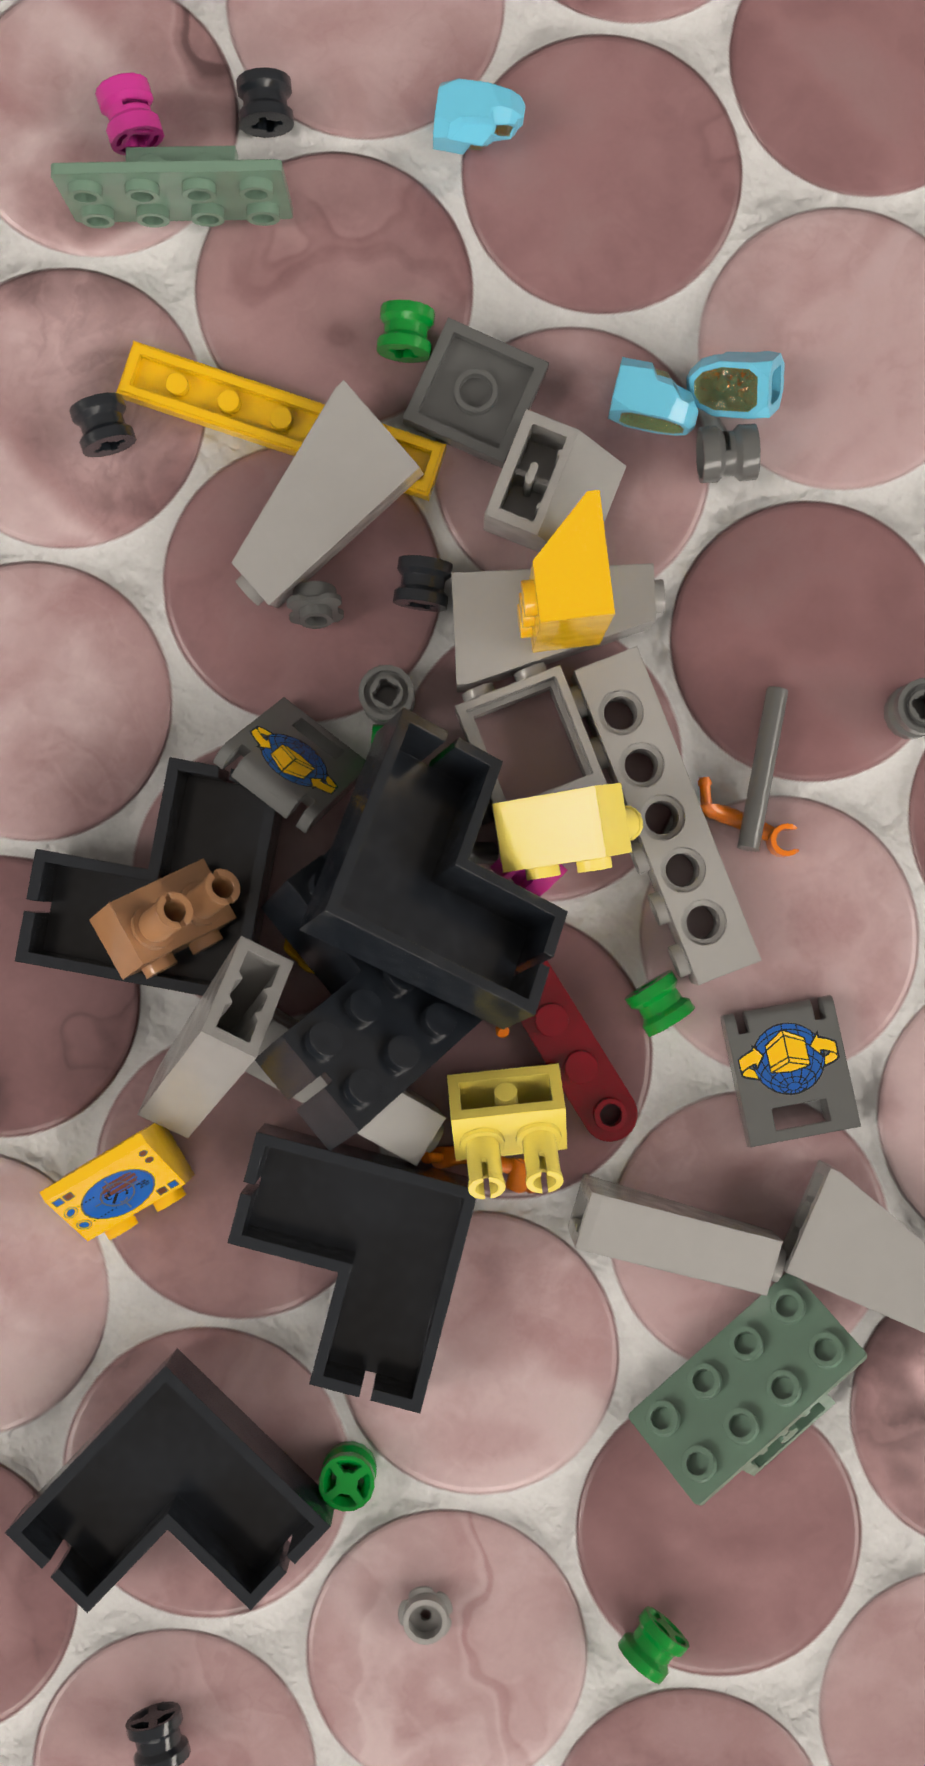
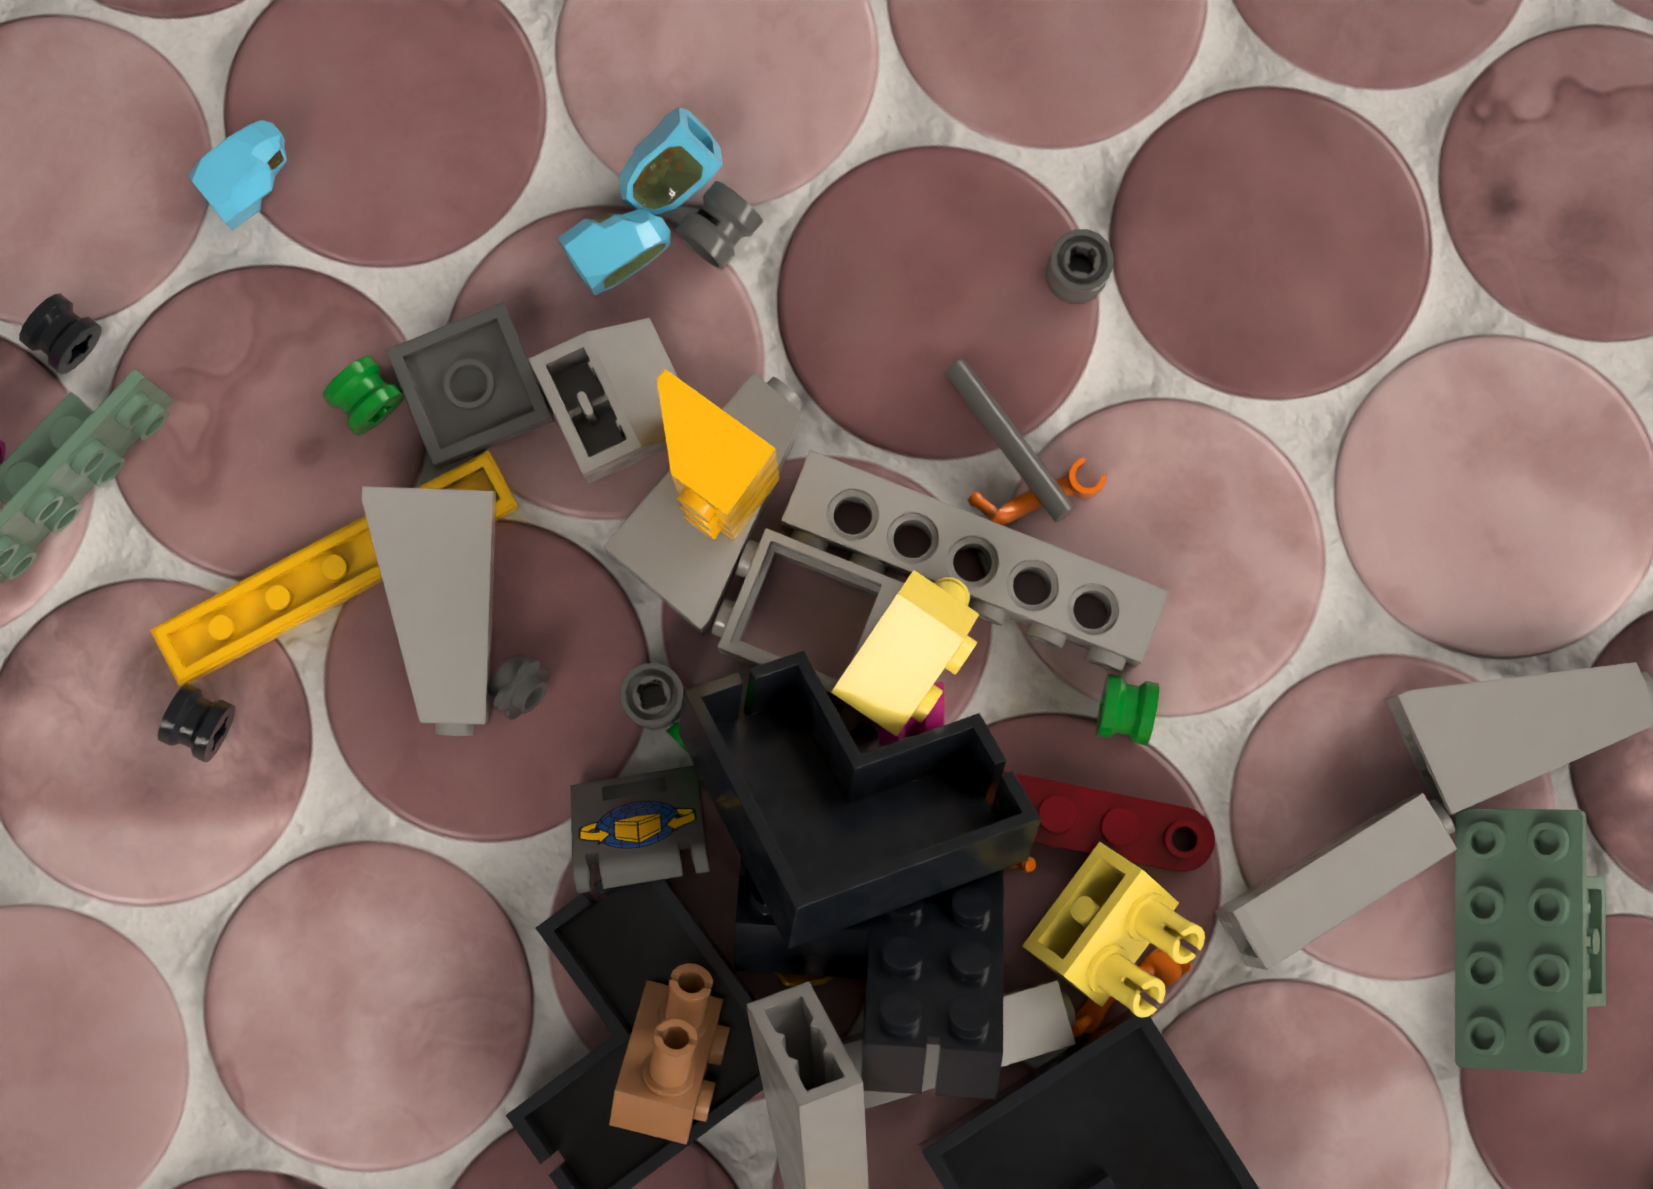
camera: 50 degrees left, 5 degrees down
(422, 583) = (587, 578): black wheel -> none
(789, 1062) = (1277, 646): dark grey container -> none

